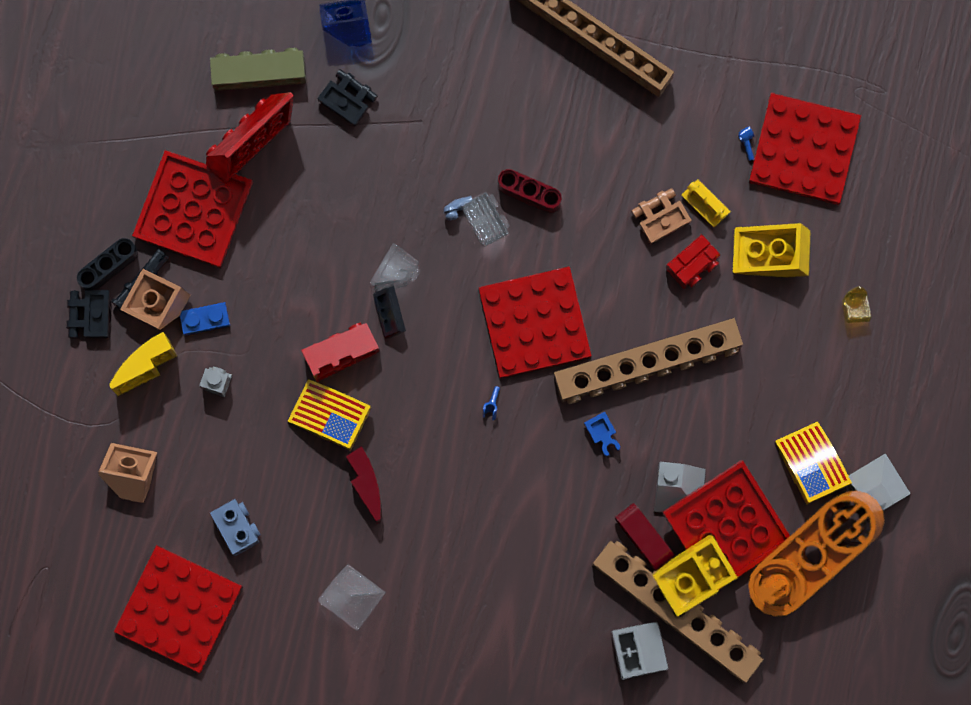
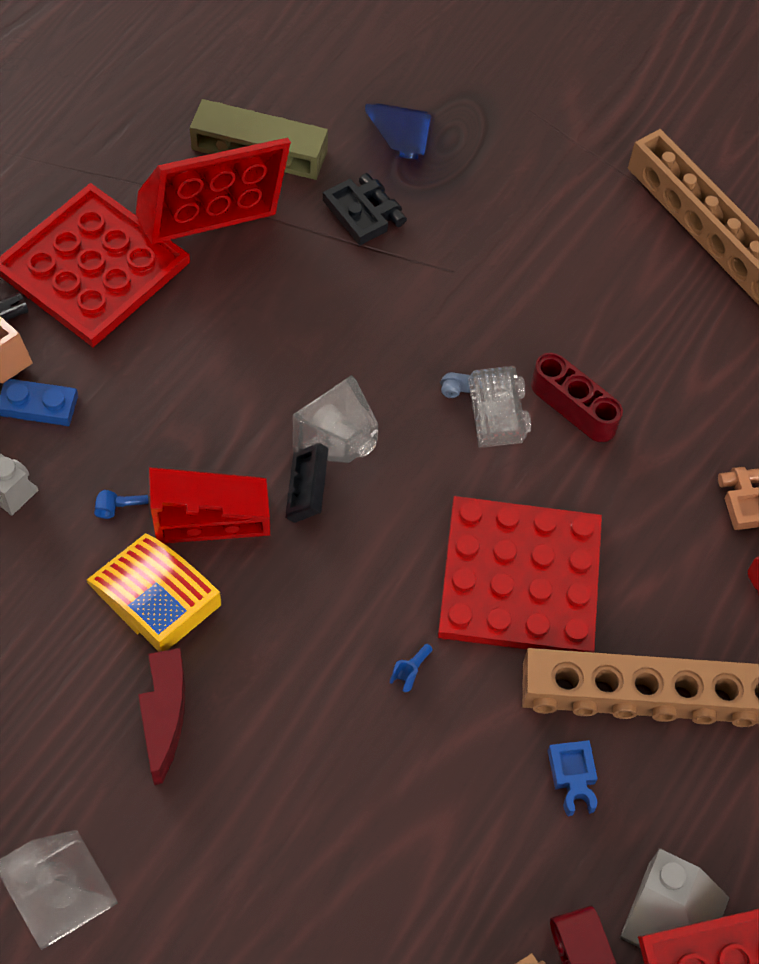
camera: 15 degrees right, 20 degrees down
(277, 369) = (108, 501): none -> blue hand

